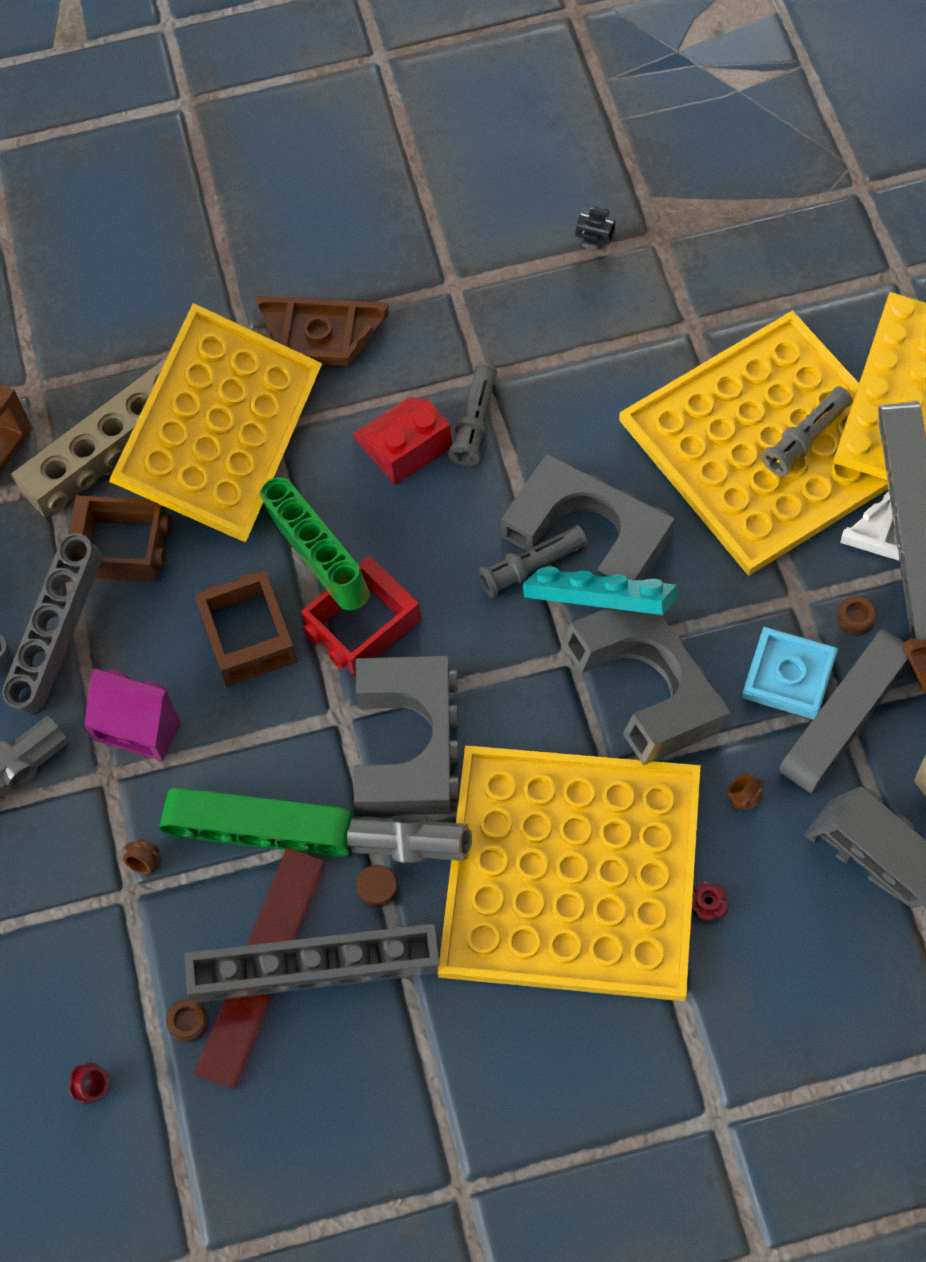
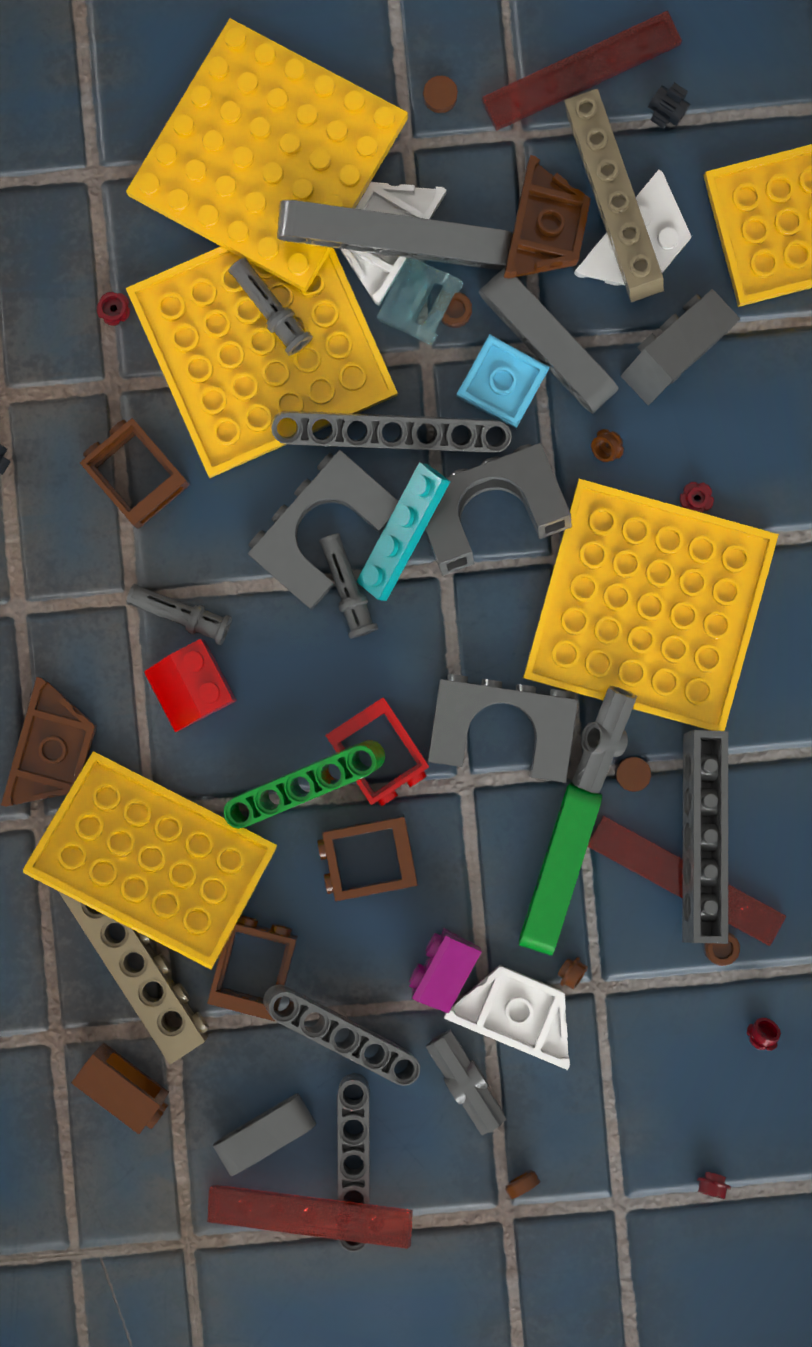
camera: 85 degrees left, 25 degrees up
(90, 807) = (517, 1014): none -> white wing
(590, 375) = (158, 498): none -> reddish brown window
(707, 581) = (407, 438): none -> dark grey beam
(769, 300) = (113, 299): none -> dark red plate
(858, 565) = (409, 296): none -> clear light blue plate

